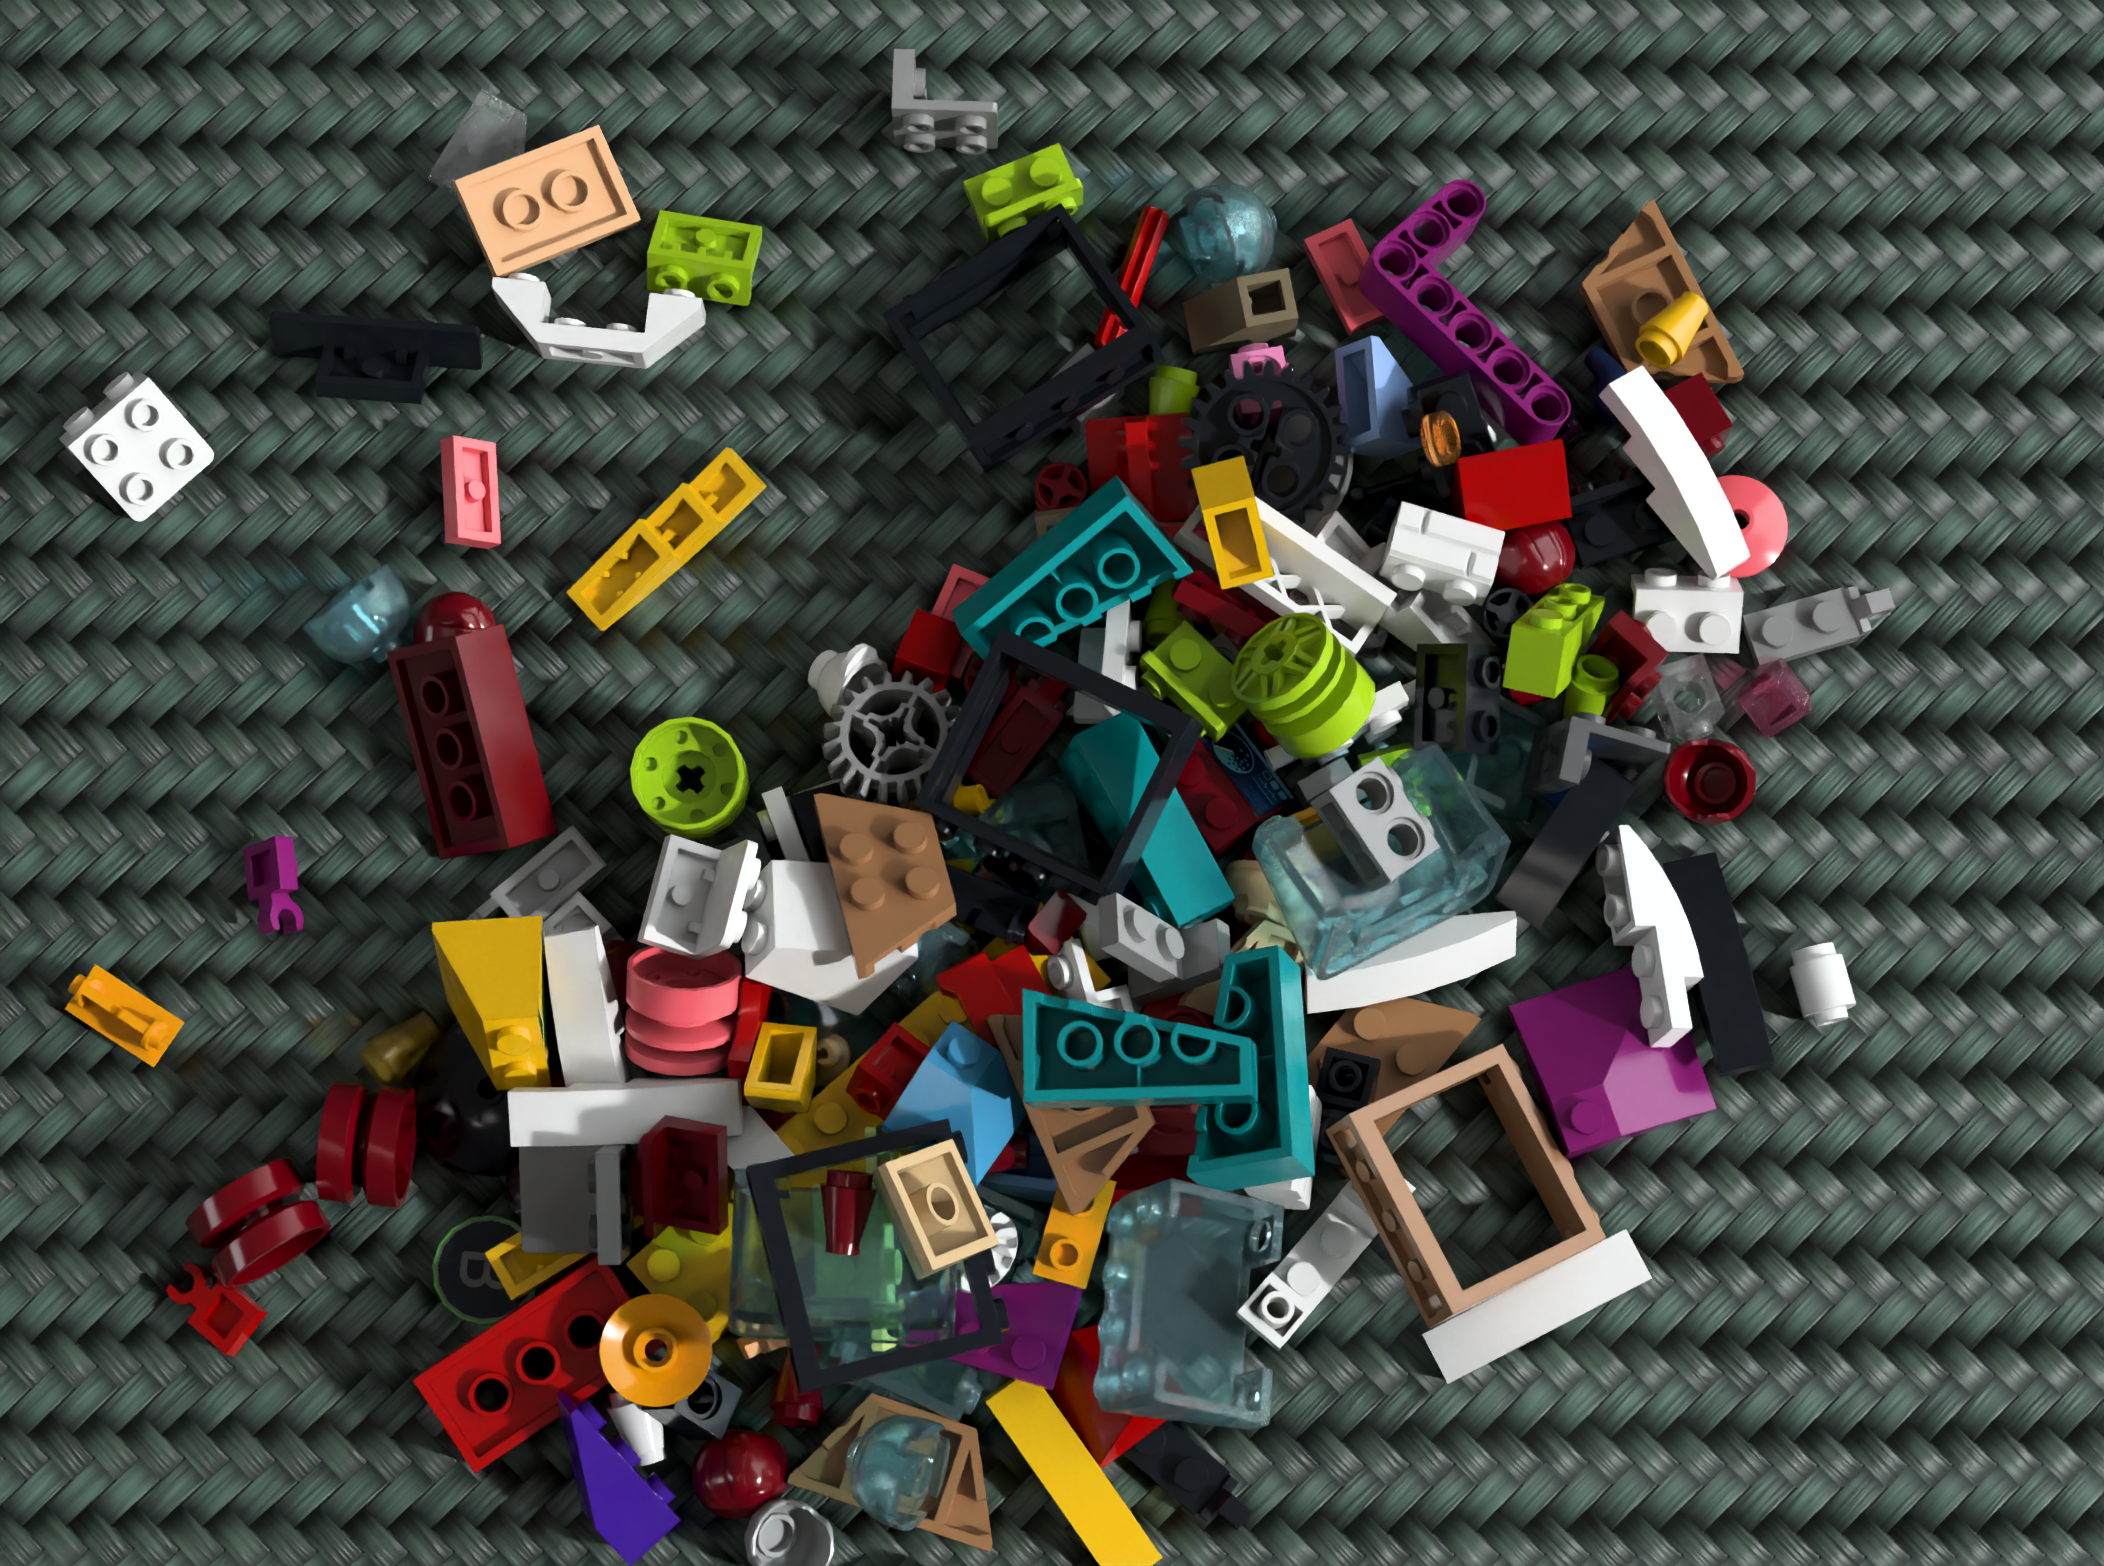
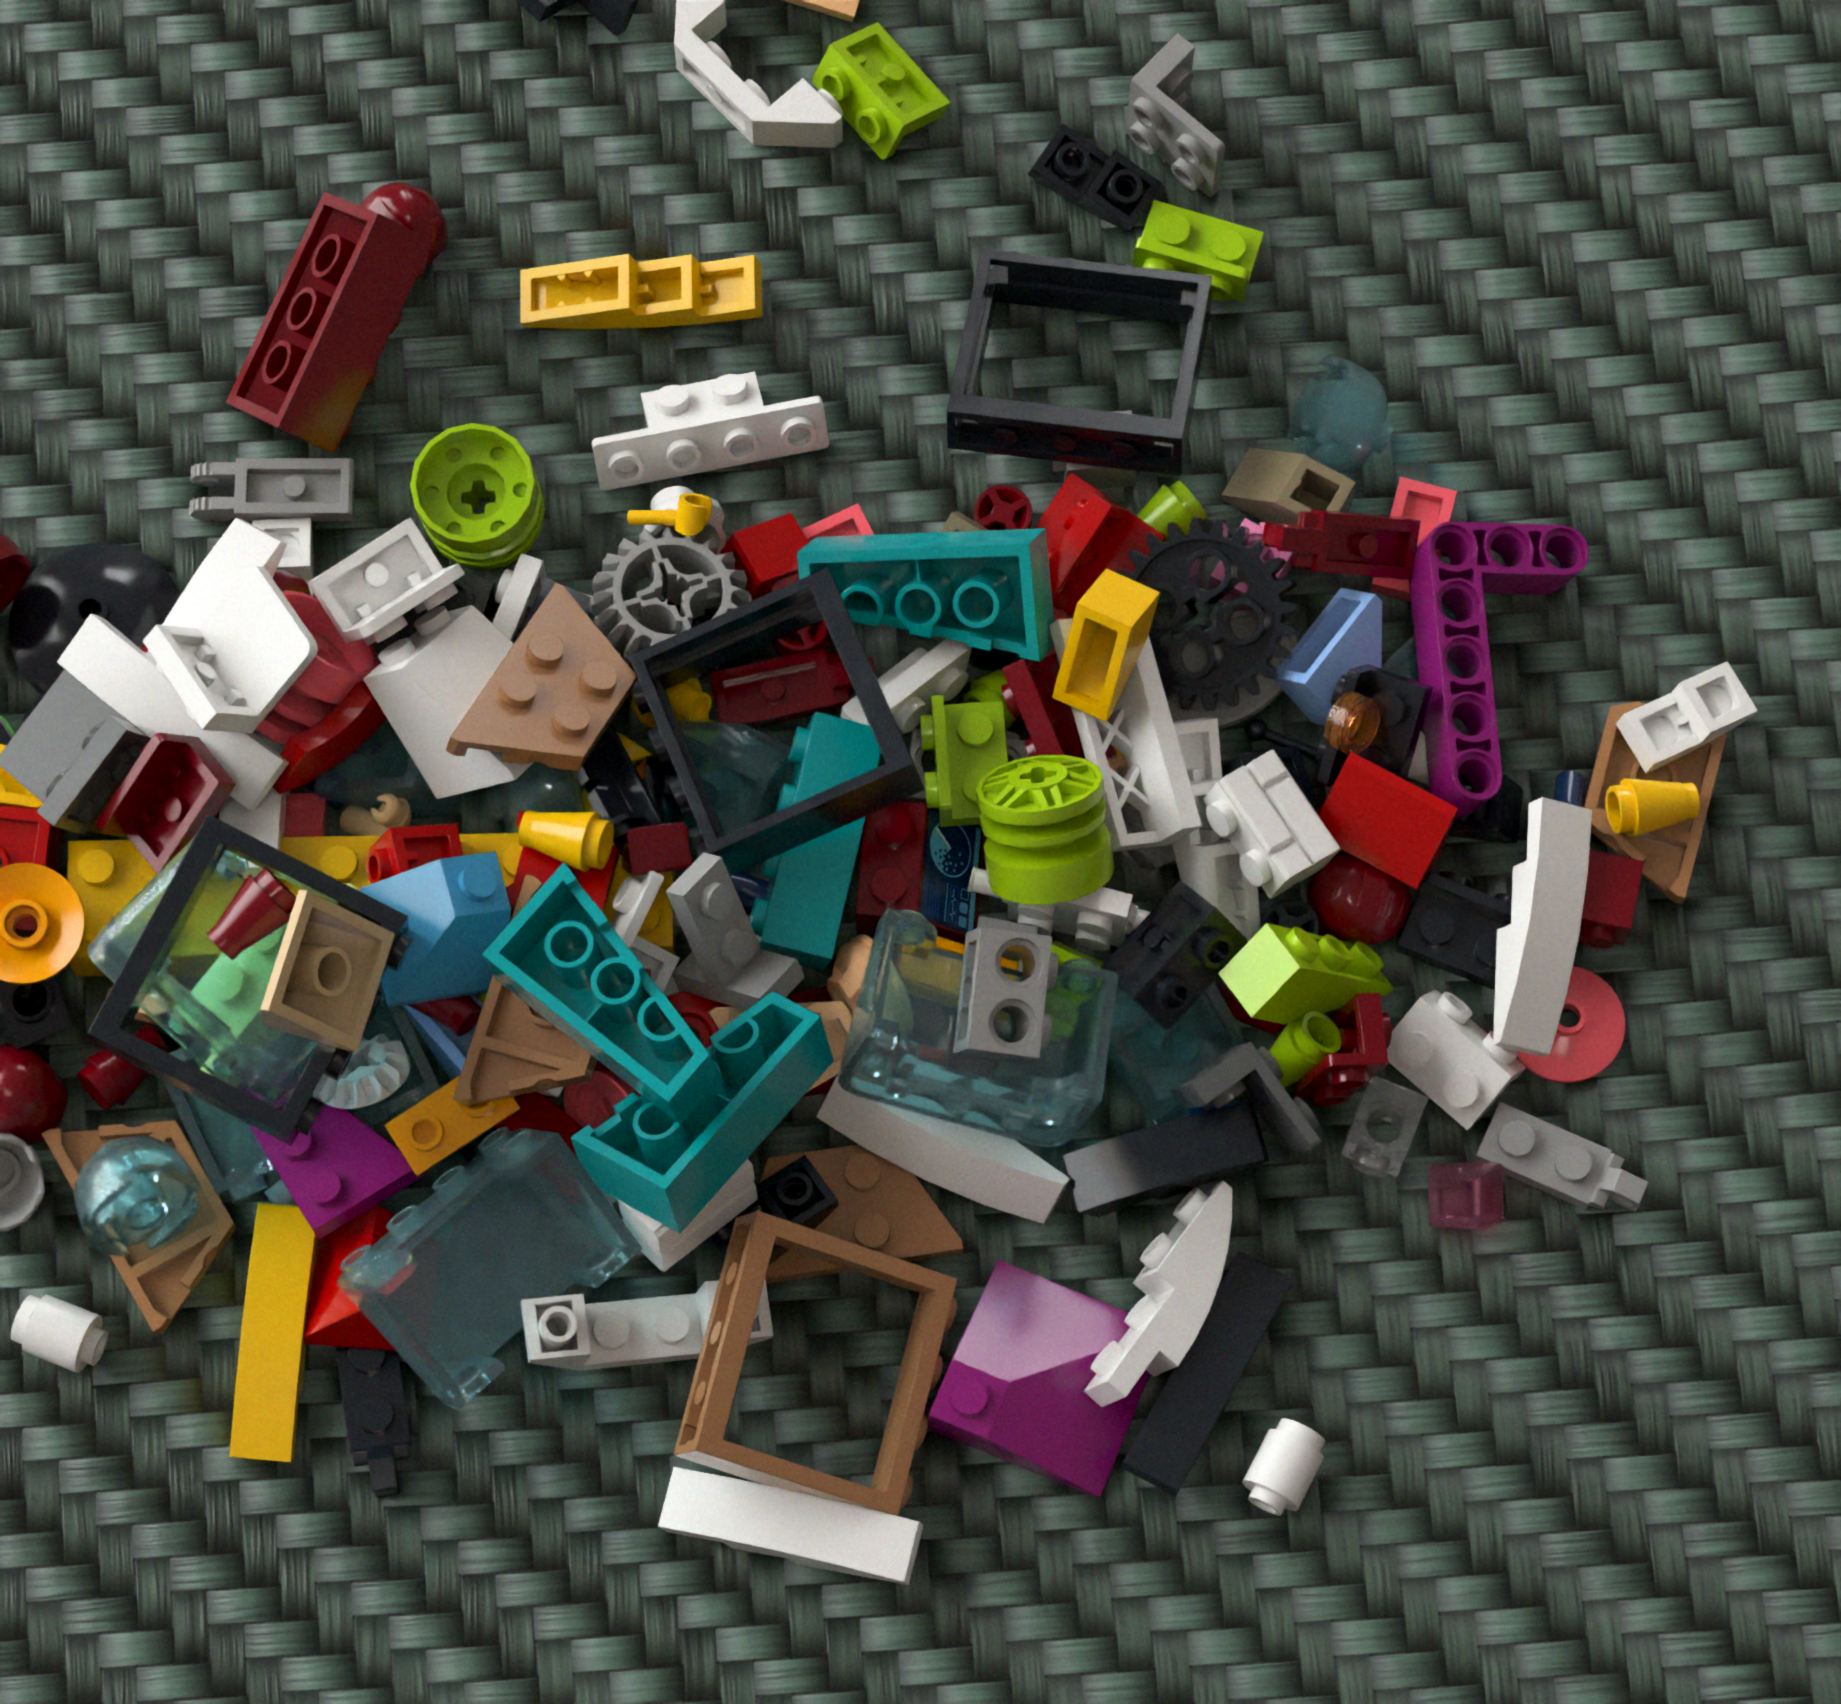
camera: 40 degrees right, 5 degrees down
(270, 878) = (75, 304): magenta plate -> none
(363, 619) = (333, 153): clear light blue cylinder -> none
(398, 1049) = (53, 523): clear yellow cone -> none
(470, 492) = (514, 125): coral plate -> none
(500, 995) = (164, 538): yellow slope -> none
(646, 1035) = (238, 657): none -> white bracket
(782, 1068) = (330, 785): yellow slope -> none
(799, 596) = (708, 429): none -> white bracket
(859, 673) = (688, 519): none -> yellow hand
(908, 201) = (1093, 180): none -> black slope
(991, 967) = (570, 837): none -> yellow cone
(1135, 267) = (1242, 385): red axle -> none
(1321, 315) = (1348, 543): none -> dark red hinge
(1641, 249) = (1687, 717): none -> white slope
(1709, 780) = (1337, 1210): dark red hair -> none

